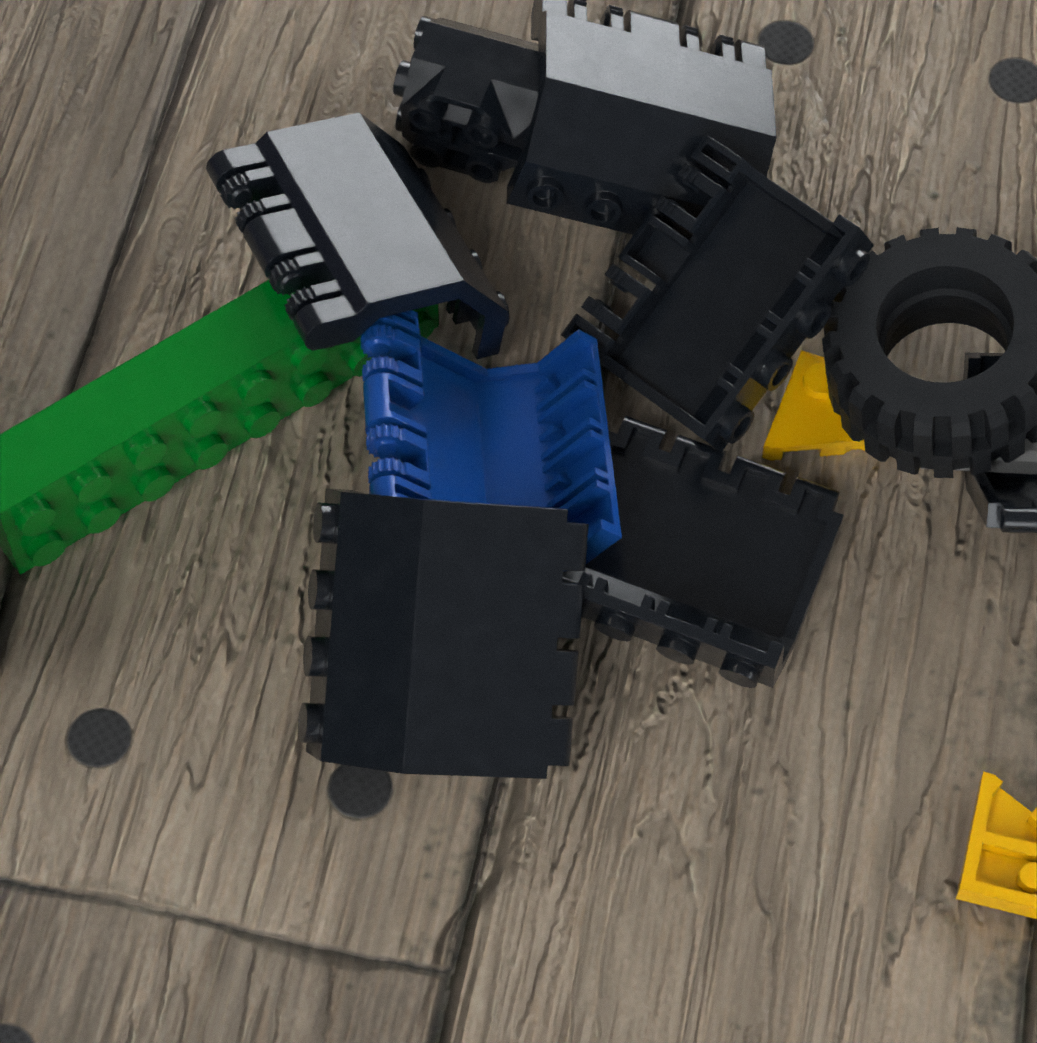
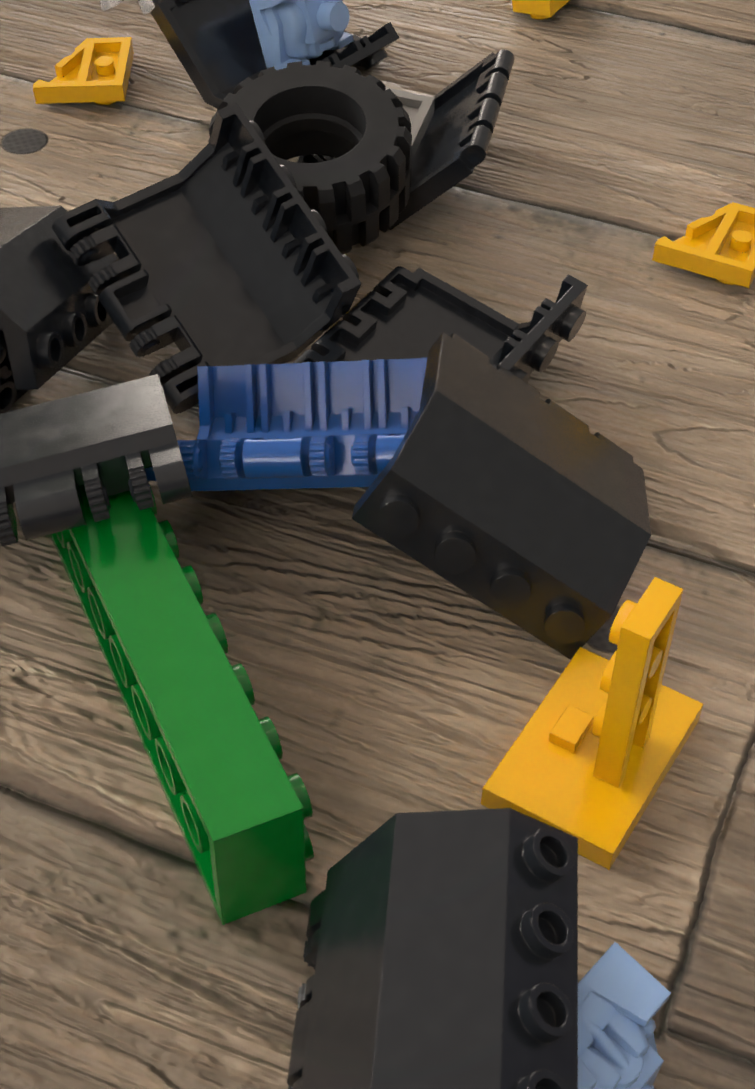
camera: 80 degrees left, 15 degrees down
(189, 780) = (602, 734): none -> yellow piece

